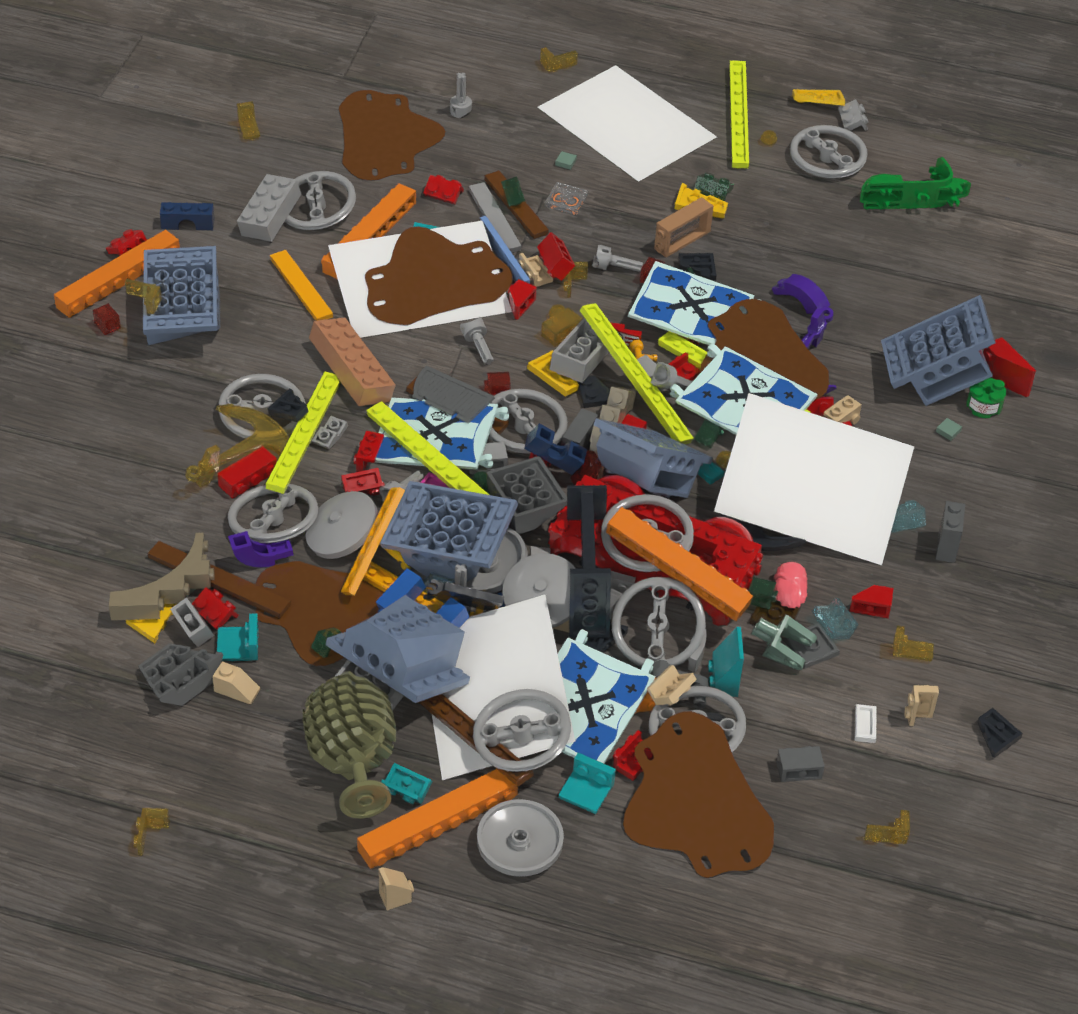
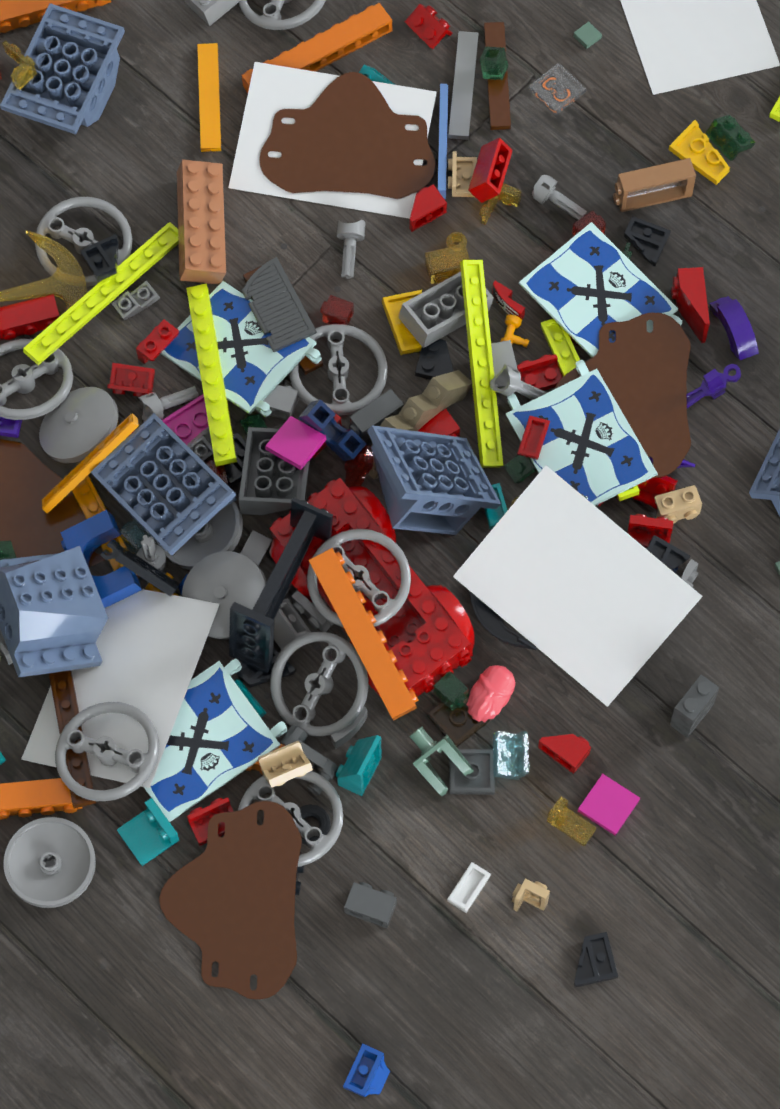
camera: 30 degrees right, 20 degrees up
(533, 465) = (295, 442): none -> dark pink tile
(709, 405) = (533, 437): none -> red tile
(763, 283) = (691, 299): none -> red slope
(878, 881) = (367, 1072): none -> blue slope
(896, 834) = (427, 1022): clear yellow bracket -> none
(909, 516) = (669, 660): clear light blue bracket -> none
(930, 626) = (608, 804): none -> dark pink tile

